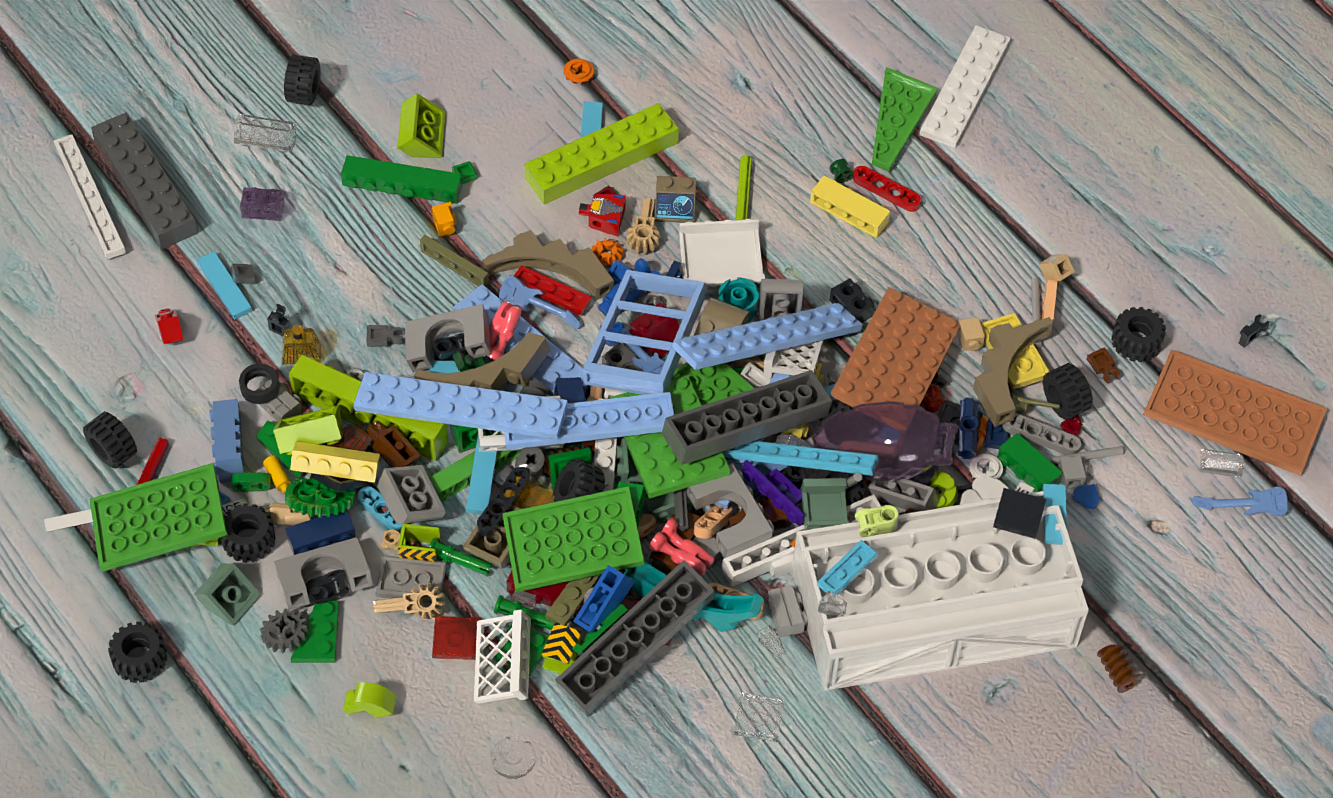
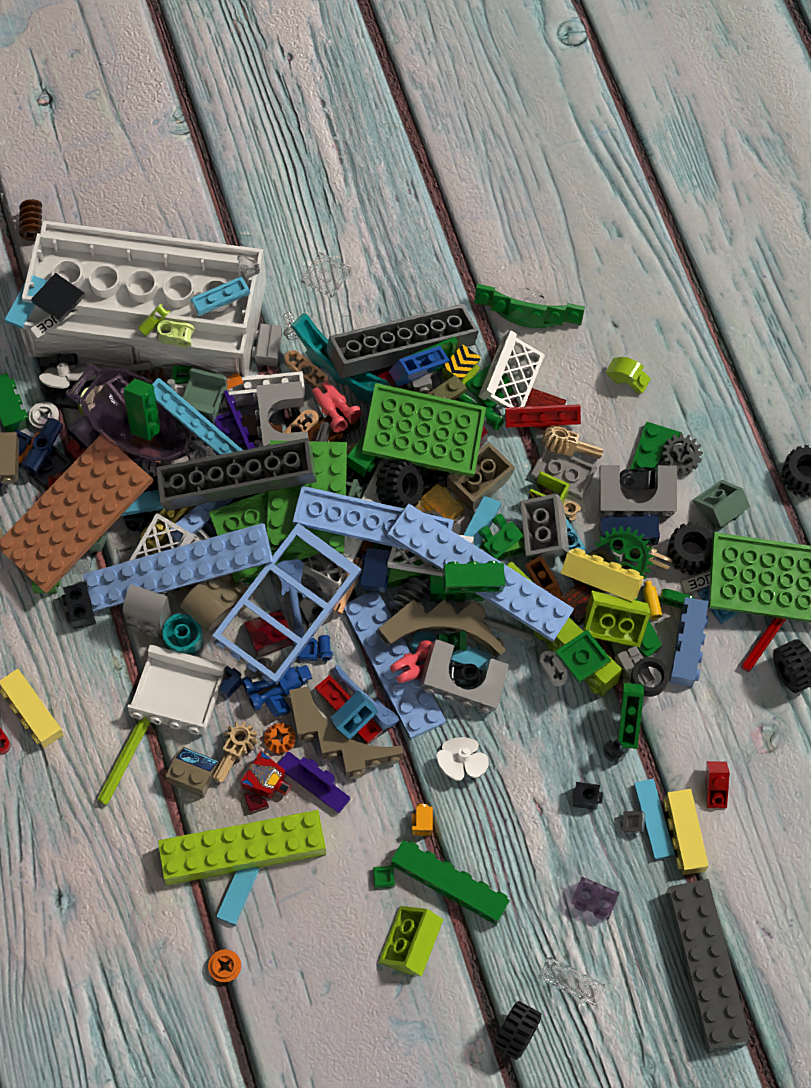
camera: 160 degrees left, 10 degrees up
(89, 197) = (765, 968): white plate -> none
(189, 278) = (686, 832): none -> light yellow brick
(269, 344) = (630, 715): none -> green brick
(294, 281) = (581, 802): none -> black brick
(300, 342) = (600, 717): clear yellow torso -> none
(331, 365) = (582, 656): none -> green plate
(380, 335) = (522, 712): flat silver plate -> none
(420, 283) = (456, 756): none -> white piece
(450, 554) = (526, 481): green pin -> none
(452, 471) = (501, 541): none -> green plate
(453, 261) = (432, 775): olive plate -> none
(456, 617) = (542, 415): none -> red plate
(463, 381) = (473, 577): none -> green brick
(501, 500) = (468, 490): black beam -> none
(518, 727) = (526, 313): none -> green piece
(540, 269) = (354, 714): none -> dark azure brick
(559, 224) = (315, 780): none -> dark purple bracket
(592, 331) = (325, 652): none -> blue pin
(841, 170) = (19, 751): dark green wheel -> none
(876, 443) = (142, 409): none -> green brick
(906, 522) = (152, 321): none -> lime bar

